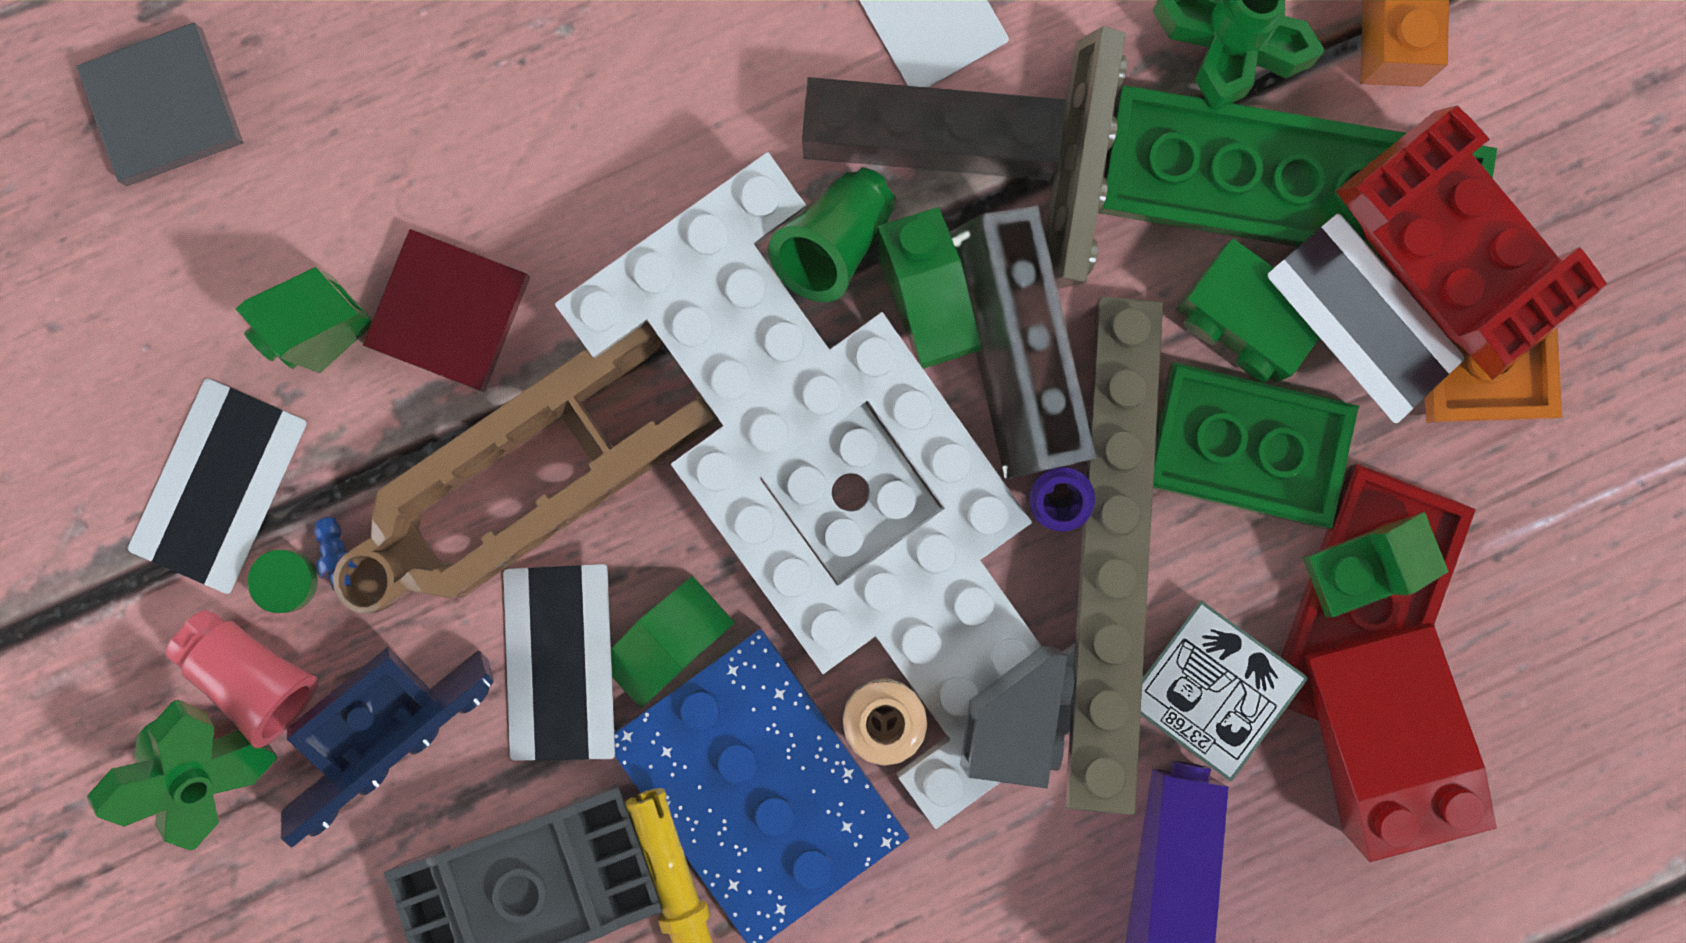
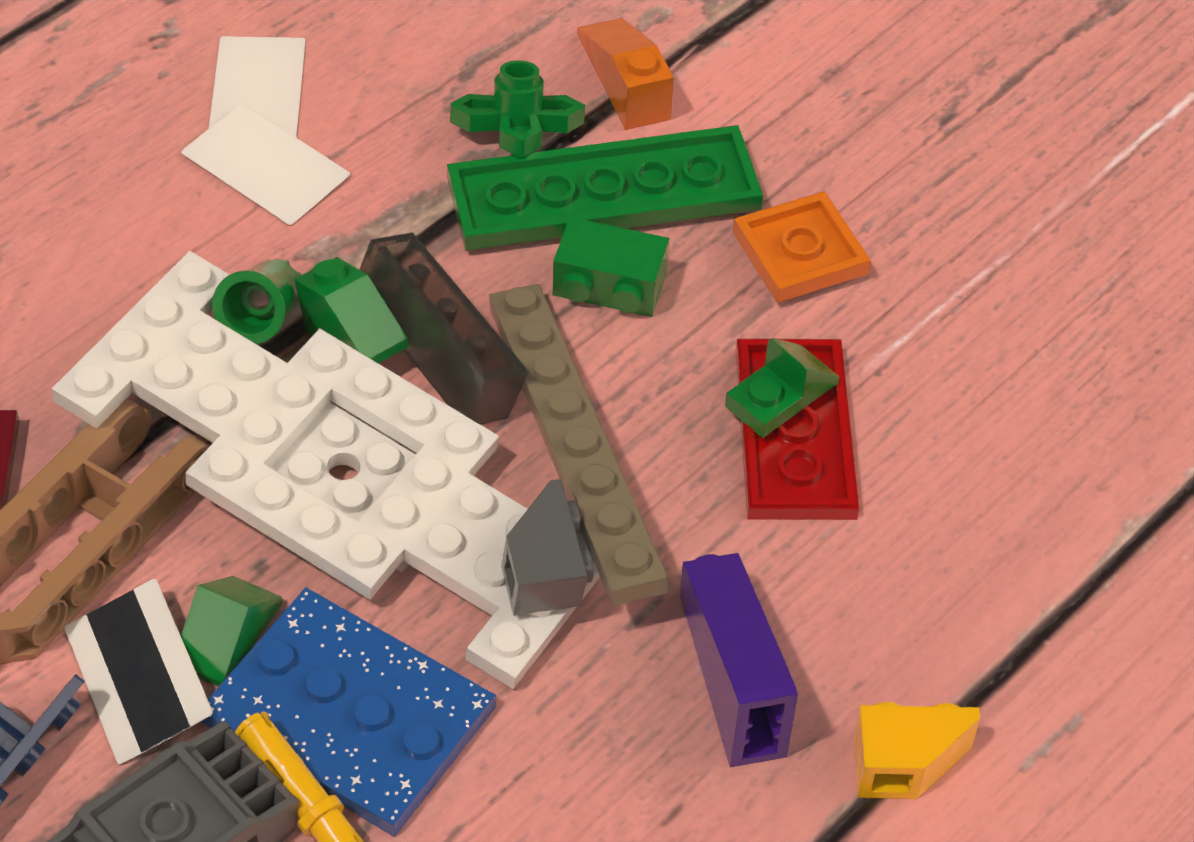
camera: 25 degrees left, 35 degrees down
(884, 745) = (437, 606): light nougat head -> none
(932, 128) = (311, 223): clear smoke brick -> none
(1069, 511) = (513, 408): dark purple cone -> none
(1086, 138) = (434, 205): dark tan plate -> none
(1217, 690) = (702, 507): white tile -> none
(1252, 445) = (652, 355): green tile -> none
(1366, 317) = (693, 235): sticker -> none
(1399, 744) = (859, 491): red slope -> none
(1466, 243) = (738, 175): red plate -> none

